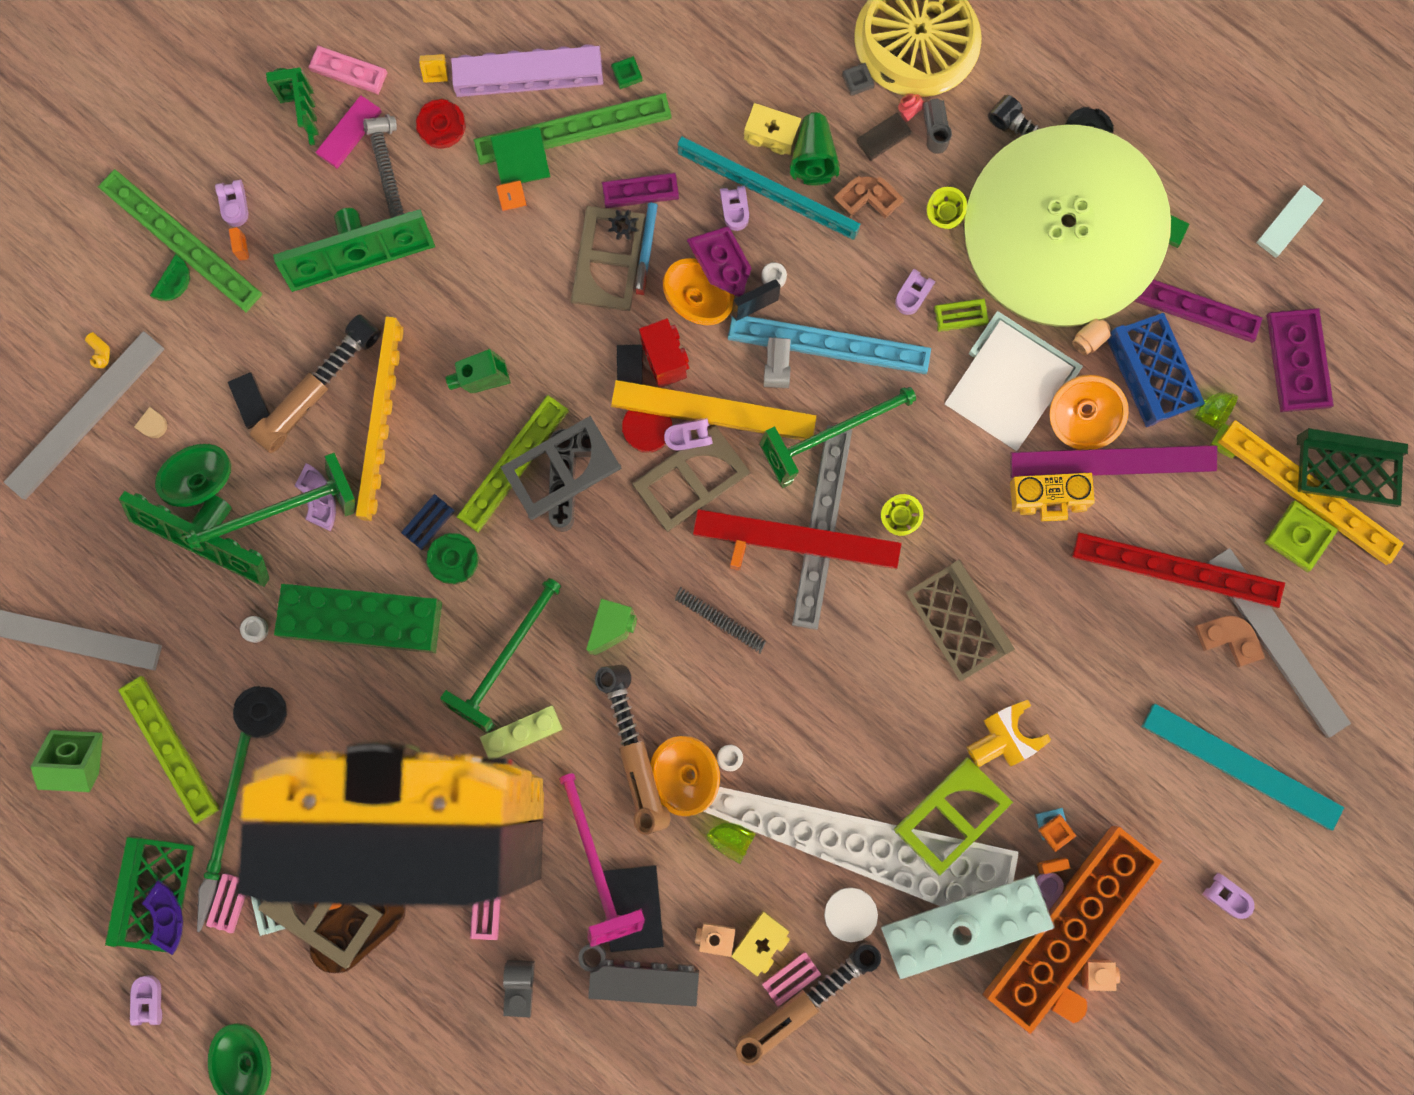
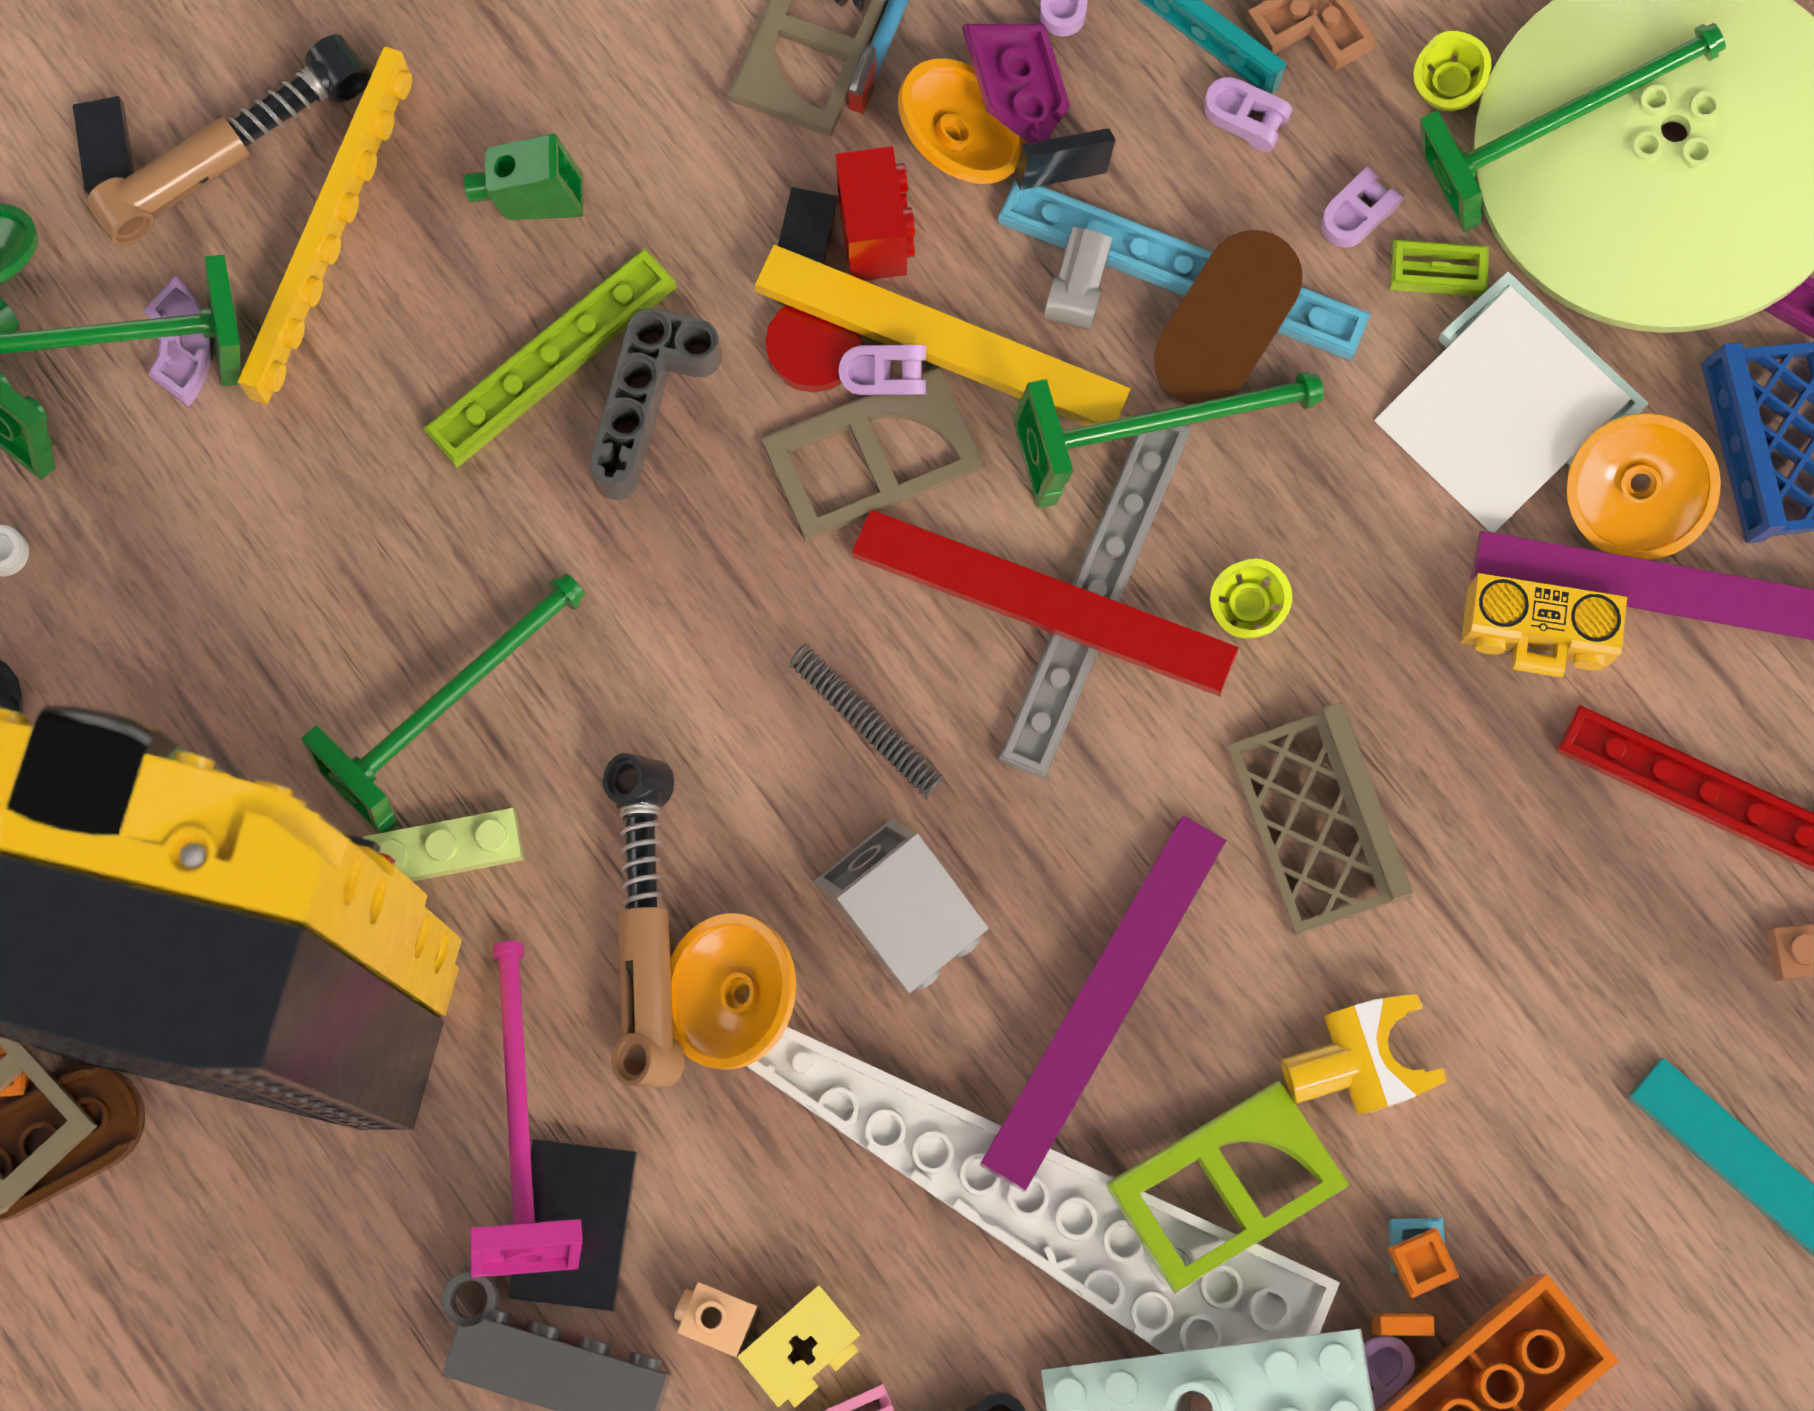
camera: 10 degrees right, 5 degrees down
(358, 618) = (195, 569): green brick -> none
(421, 514) = (359, 413): dark blue tile -> none
(452, 558) = (397, 503): green tile -> none
(495, 923) = (311, 1173): bright pink tile -> none
(518, 987) = (319, 1318): dark grey plate -> none
(600, 466) = (708, 388): dark grey window -> none
(610, 626) = (655, 683): bright green slope -> none
(729, 758) = (824, 981): white tile -> none
(731, 840) = (789, 1136): clear neon green brick -> none
(738, 555) = (926, 608): orange tile -> none
(760, 711) = (902, 905): none -> slope
(774, 271) = (1113, 117): white tile -> none
(835, 248) = (1230, 103): none -> lavender plate
(850, 914) = (988, 1332): white tile -> none
(859, 367) = (1228, 317): none -> reddish brown tile
(872, 738) = (1102, 1004): none -> magenta tile
(960, 262) = (1456, 169): none -> green tile
(1091, 336) = (1675, 355): light nougat brick -> none

